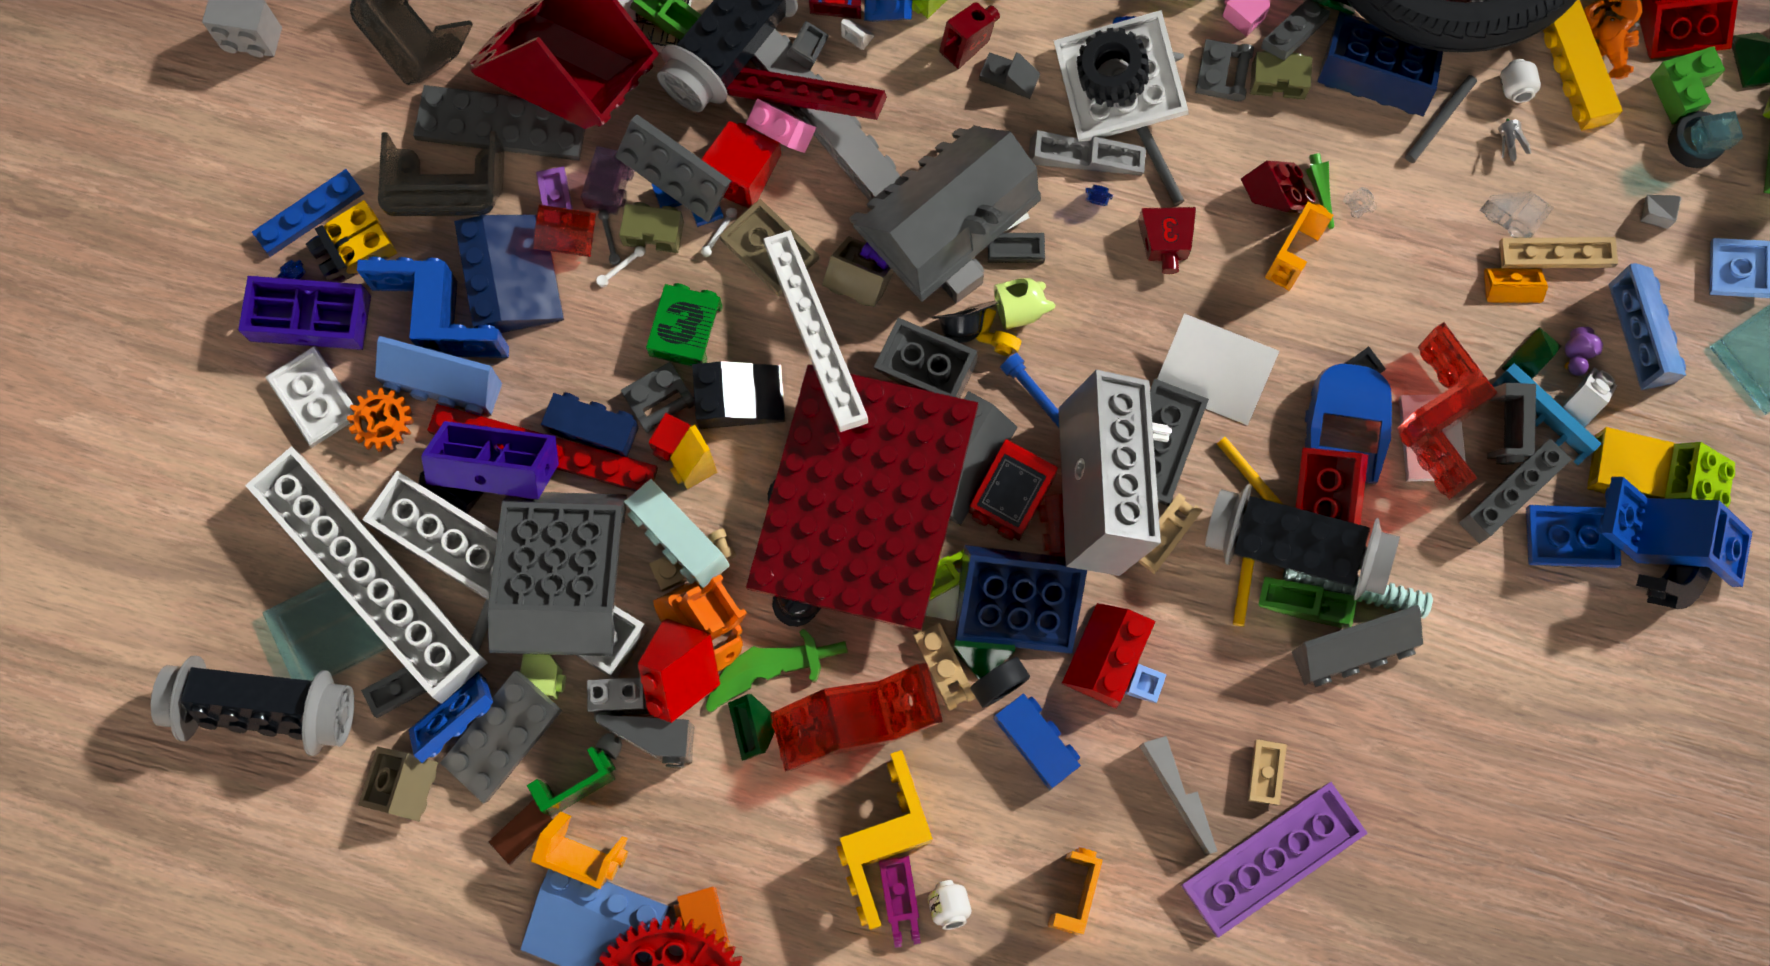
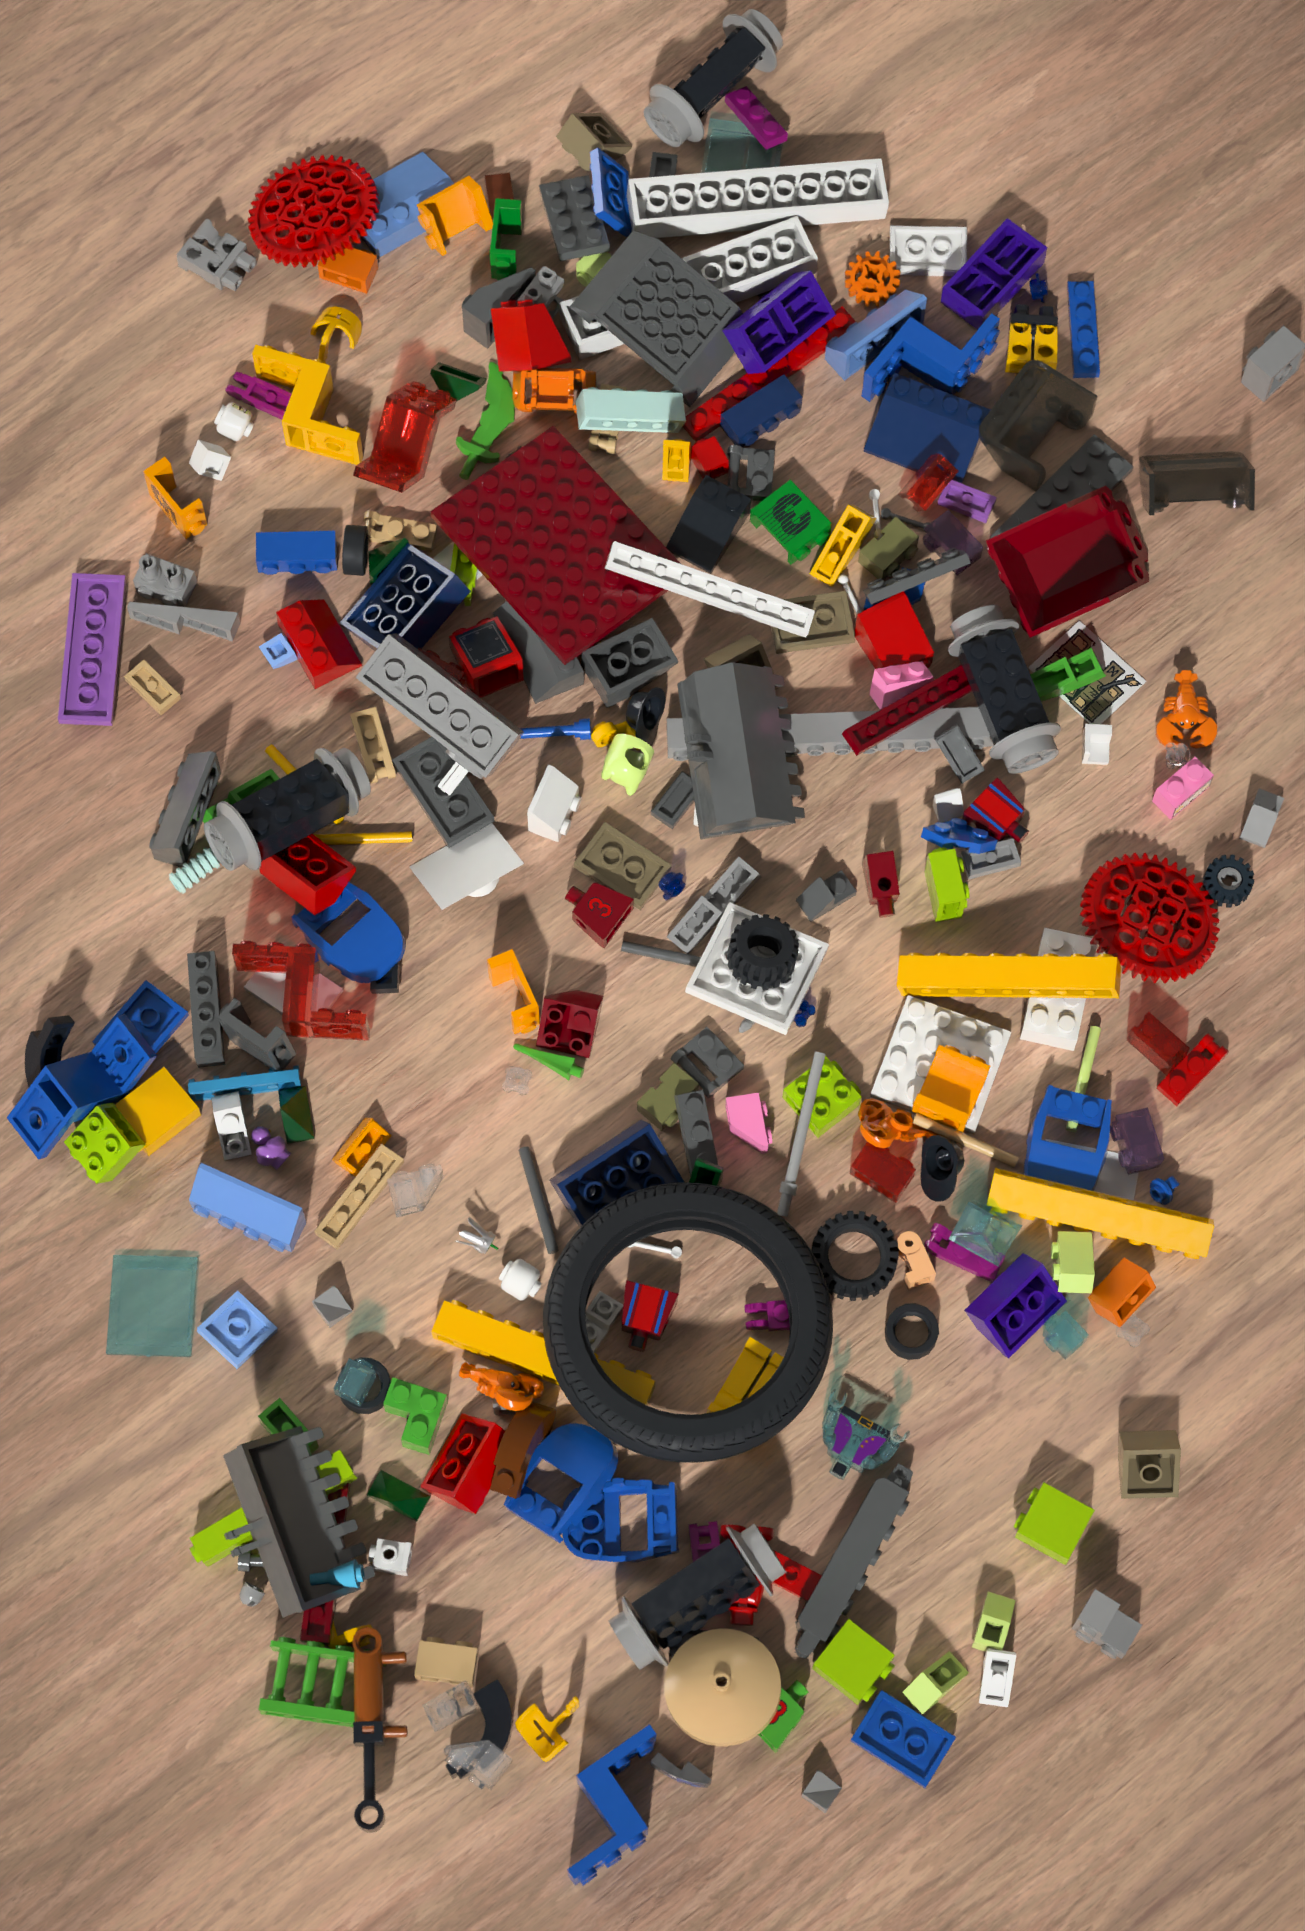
camera: 125 degrees right, 5 degrees down
(271, 638) = (756, 117): none -> magenta plate
(667, 266) = (843, 544): none -> yellow slope
(766, 897) = (347, 322): none -> yellow helmet
(1005, 898) = (209, 460): none -> white panel
(1108, 335) = (553, 805): none -> white slope
(1112, 247) = (622, 865): none -> dark tan plate
(1159, 842) = (164, 581): none -> light grey brick

